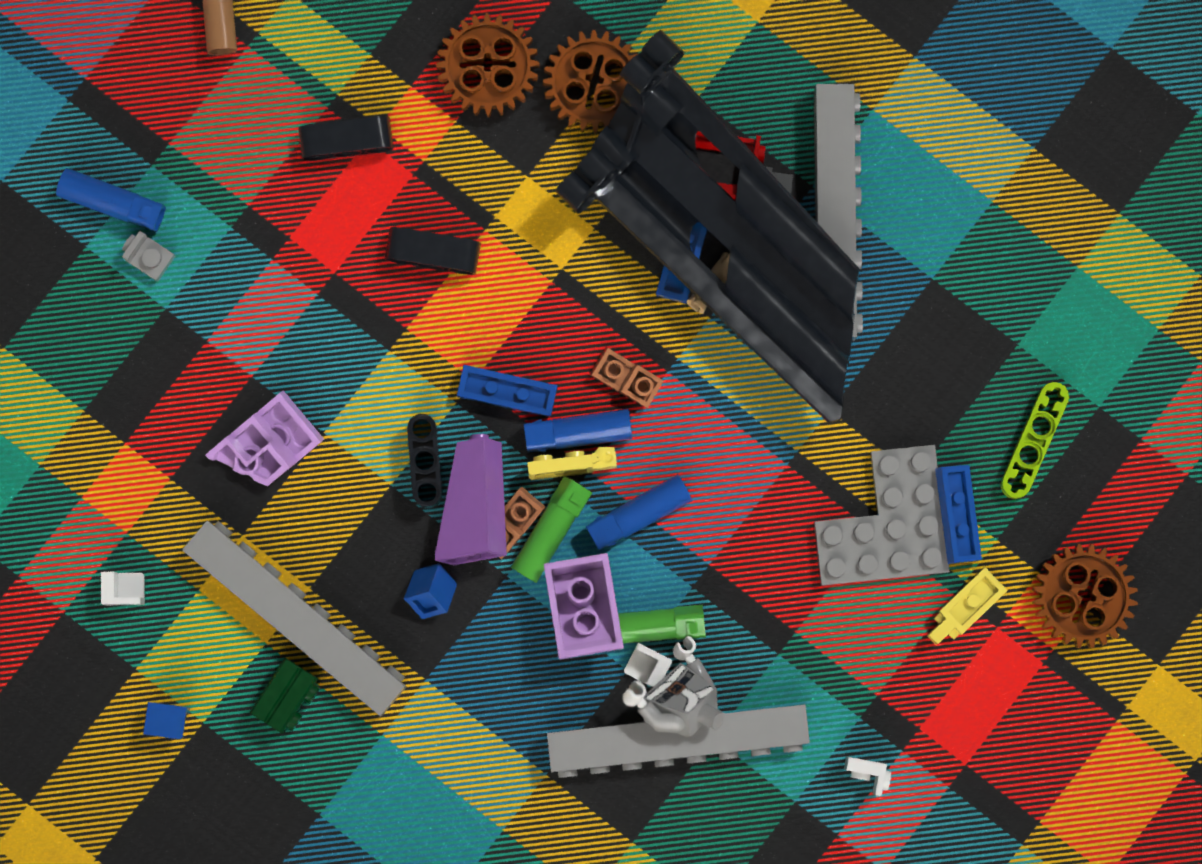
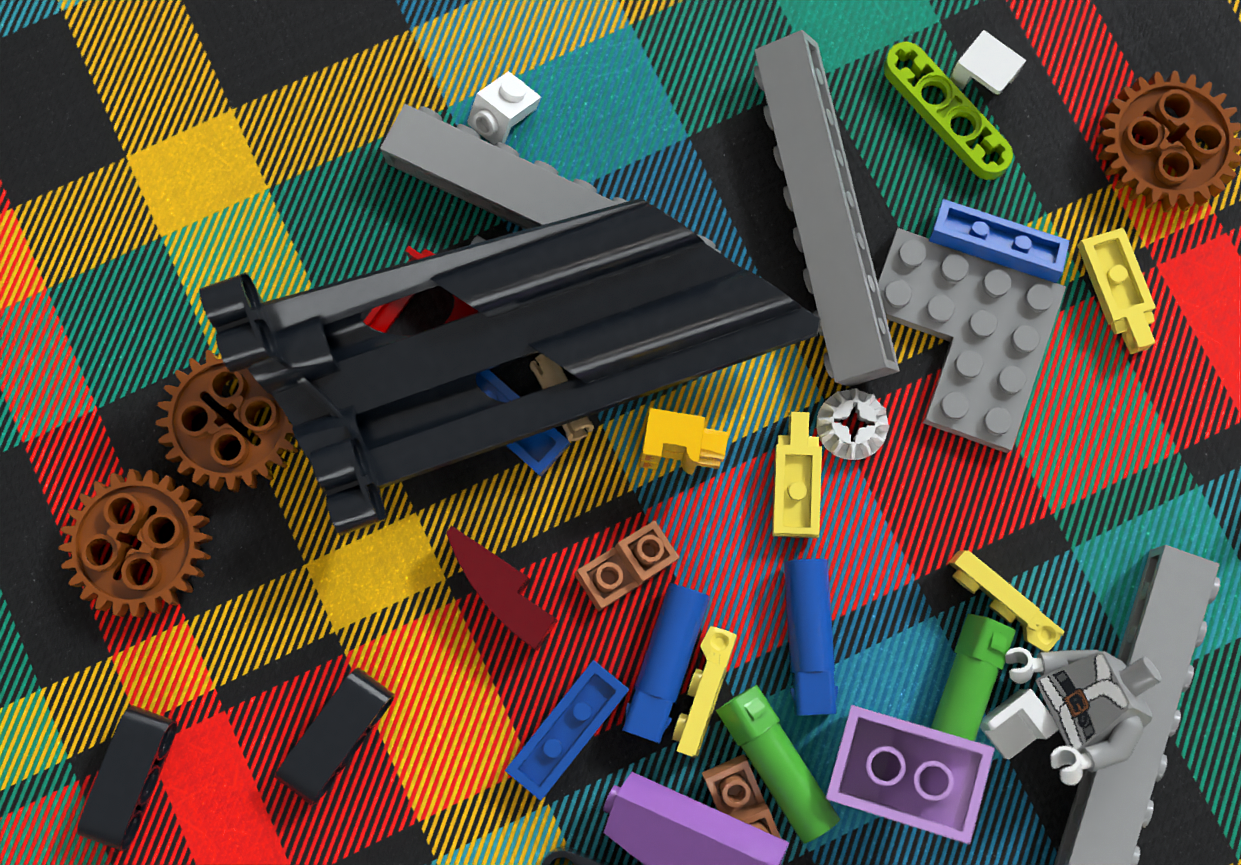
camera: 55 degrees left, 5 degrees down
(572, 307) = (501, 589): none -> dark red slope
(722, 371) = (683, 439): none -> yellow hips
(722, 624) = (1007, 601): none -> light yellow hinge
(733, 458) = (797, 481): none -> light yellow hinge
(783, 491) = (837, 437): none -> white gear
(888, 147) = (501, 107): none -> white bracket
(922, 390) = (825, 211): none -> light grey brick
(1075, 451) = (988, 63): none -> white panel

